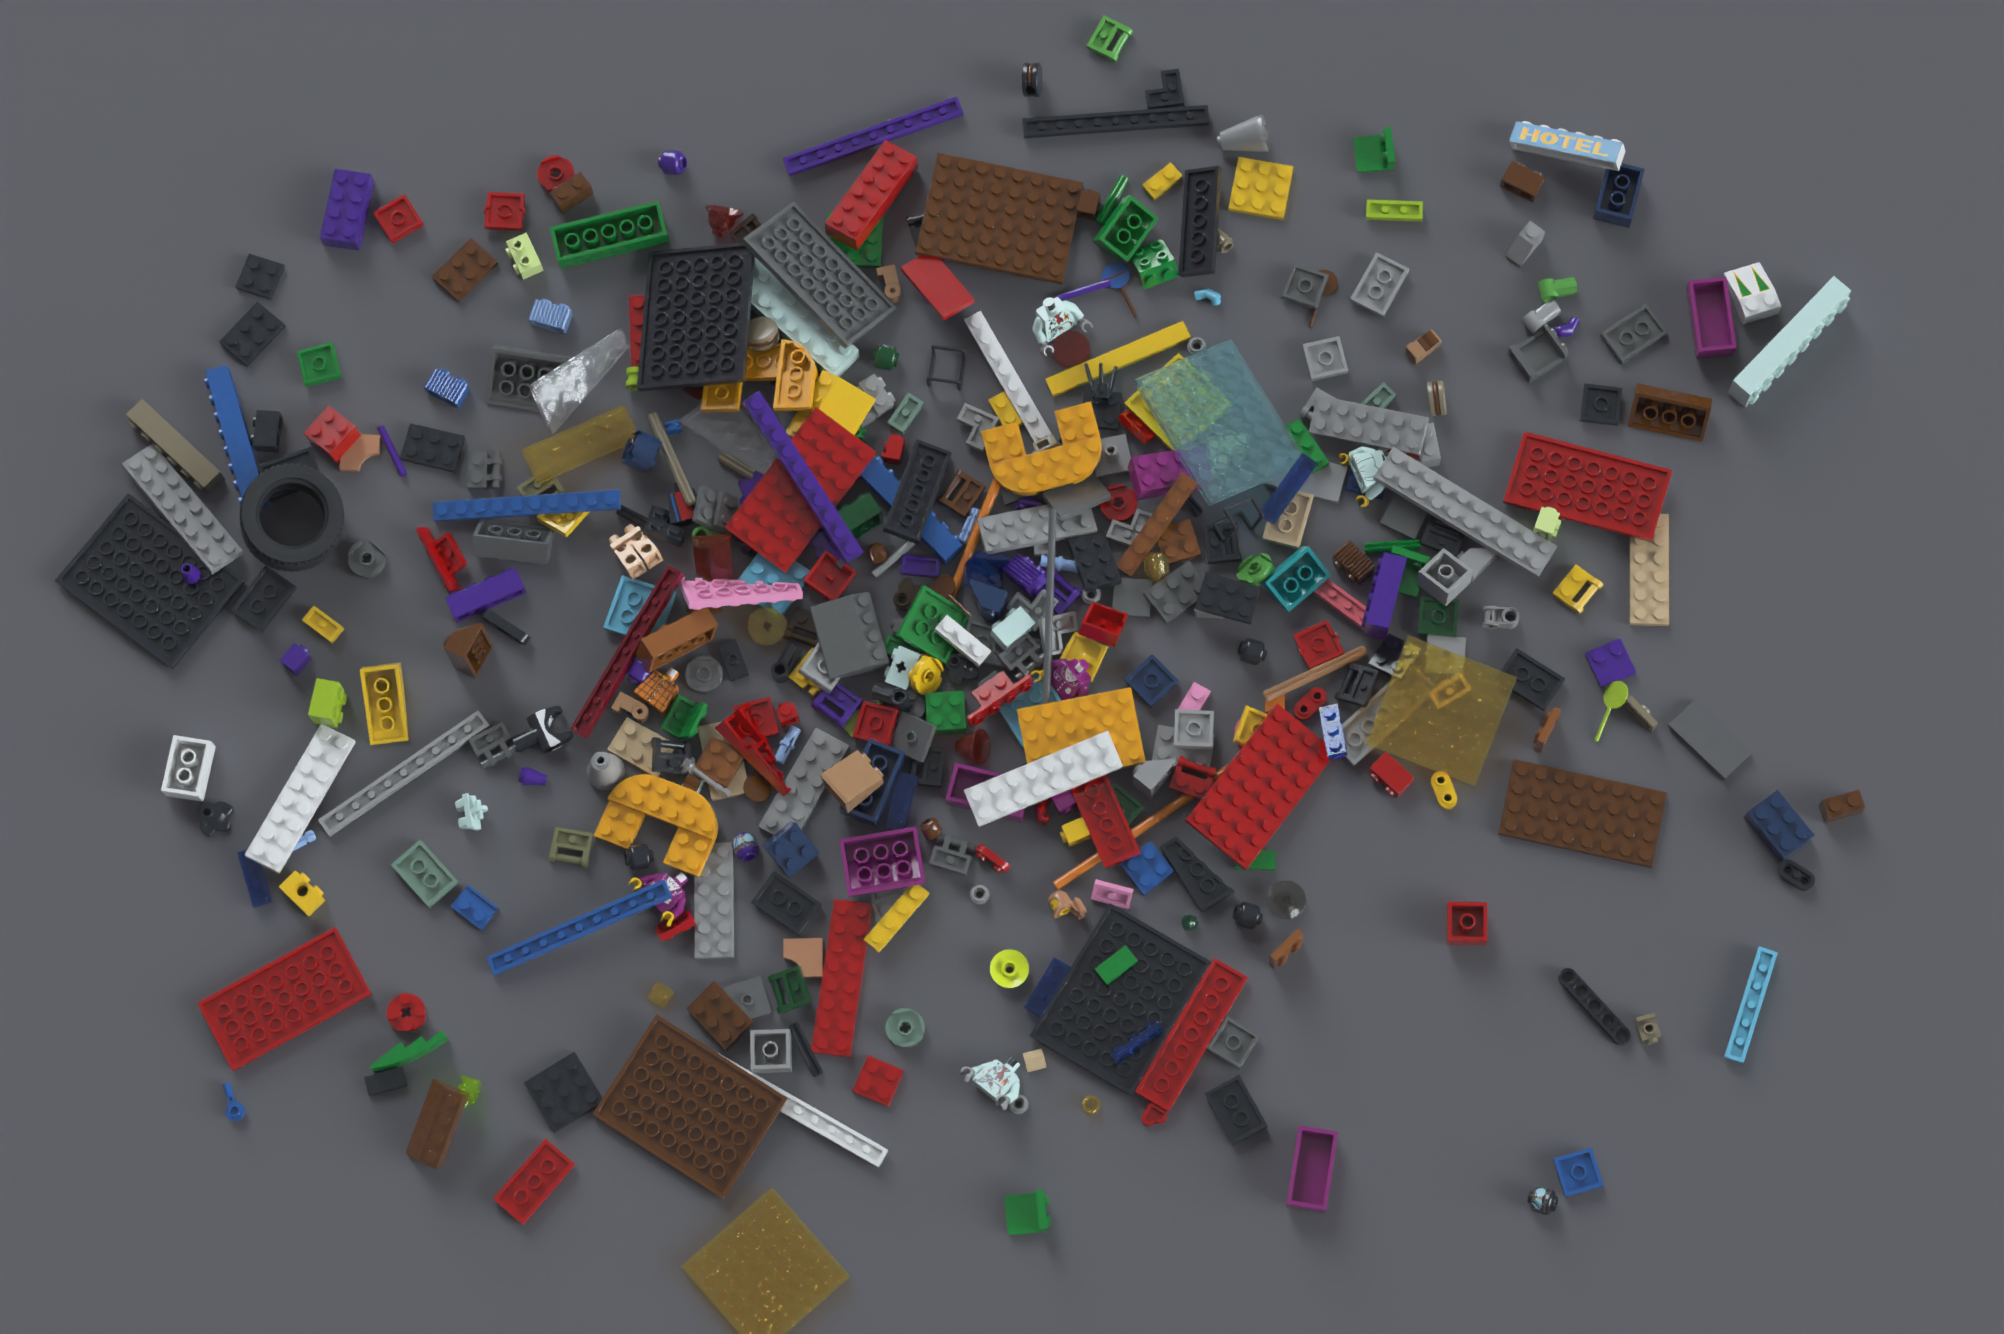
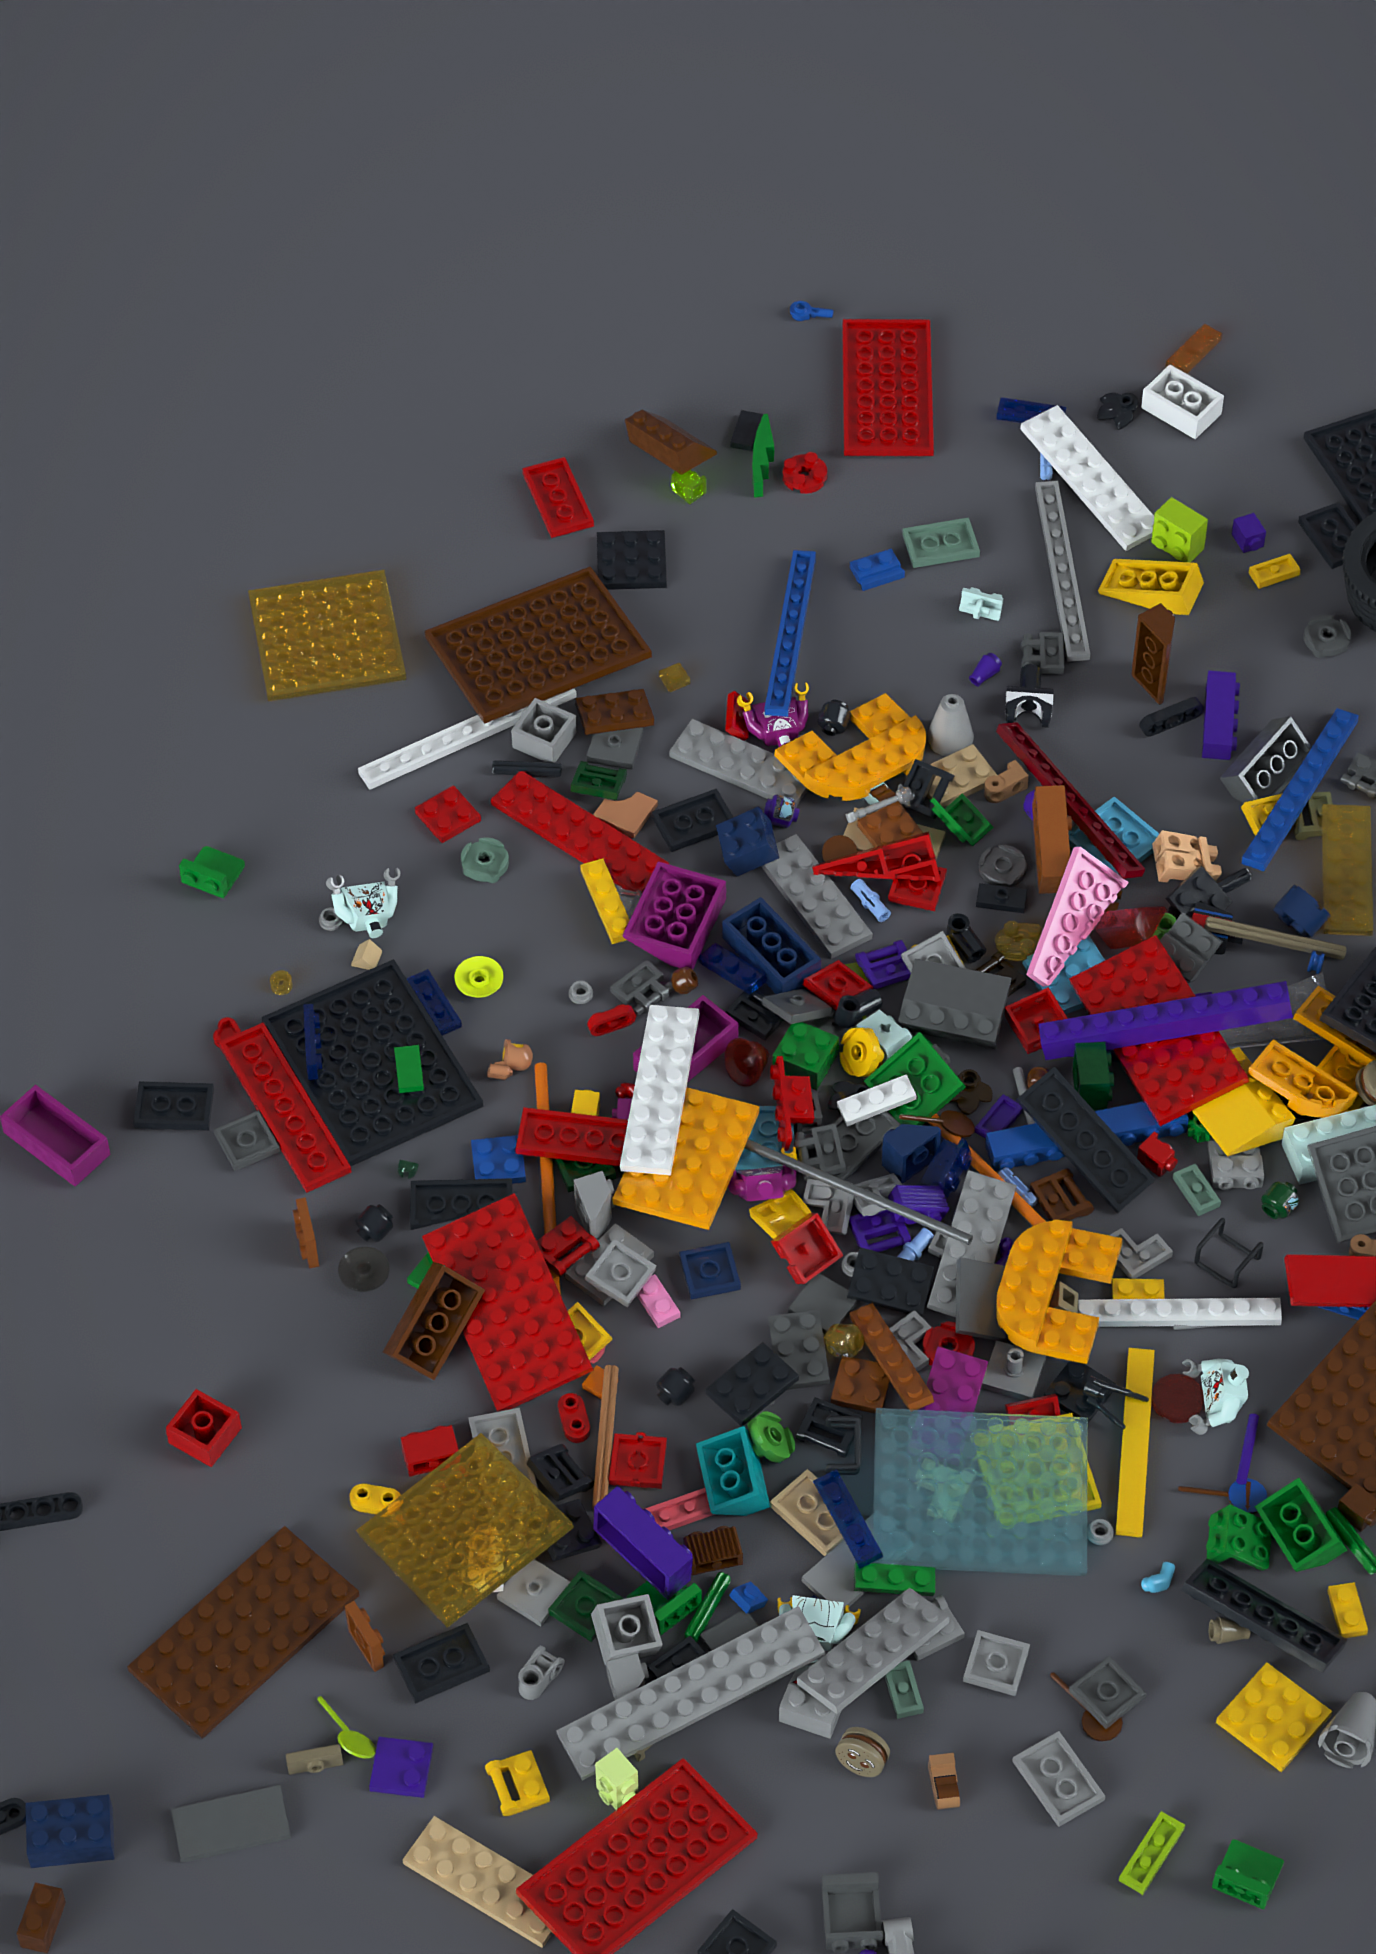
camera: 115 degrees right, 20 degrees down
(120, 793) = (1195, 348): none -> clear orange plate
(306, 903) = (987, 440): yellow brick -> none
(445, 555) = (1287, 696): red bracket -> none
(571, 840) = (890, 674): olive plate -> none
(659, 690) = (1008, 813): orange torso -> none
(787, 714) = (904, 912): red brick -> none
(852, 780) = (779, 907): medium nougat slope -> none
(1012, 627) = (860, 1156): light aqua brick -> none
(1112, 893) = (497, 1105): bright pink plate -> none
(1304, 824) = (433, 1320): none -> reddish brown slope
(1333, 731) = (521, 1413): clear blue plate -> none
(1372, 524) = (748, 1597): none -> blue plate

